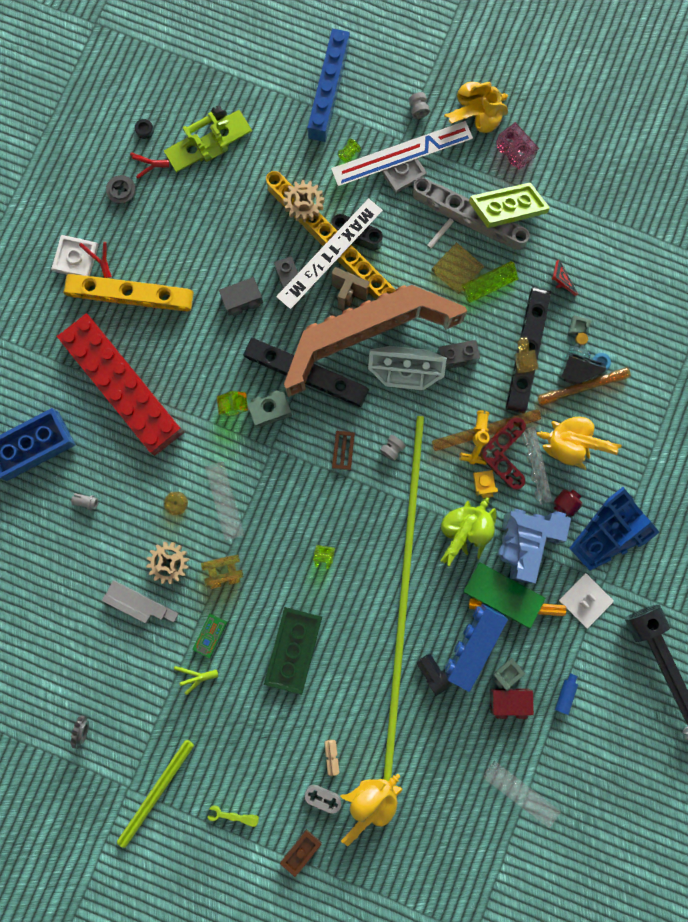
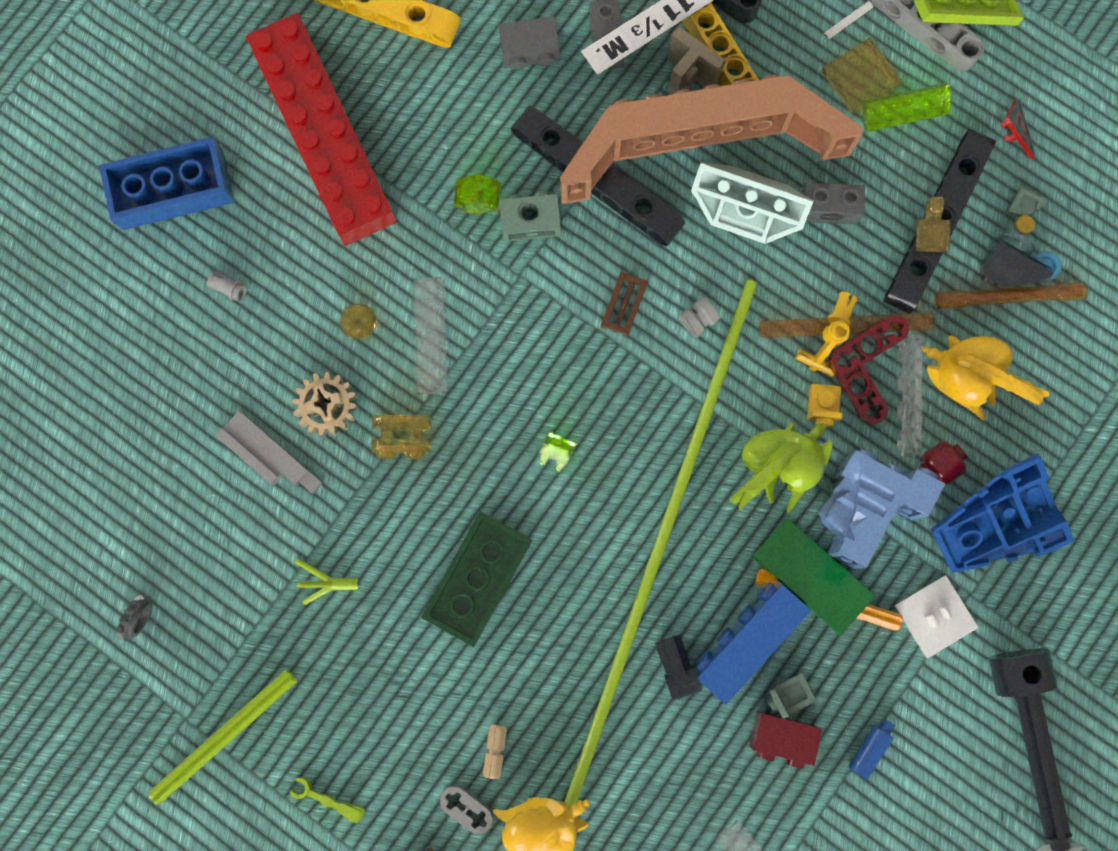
camera: 20 degrees right, 0 degrees up
(210, 635) = (359, 526): green tile -> none

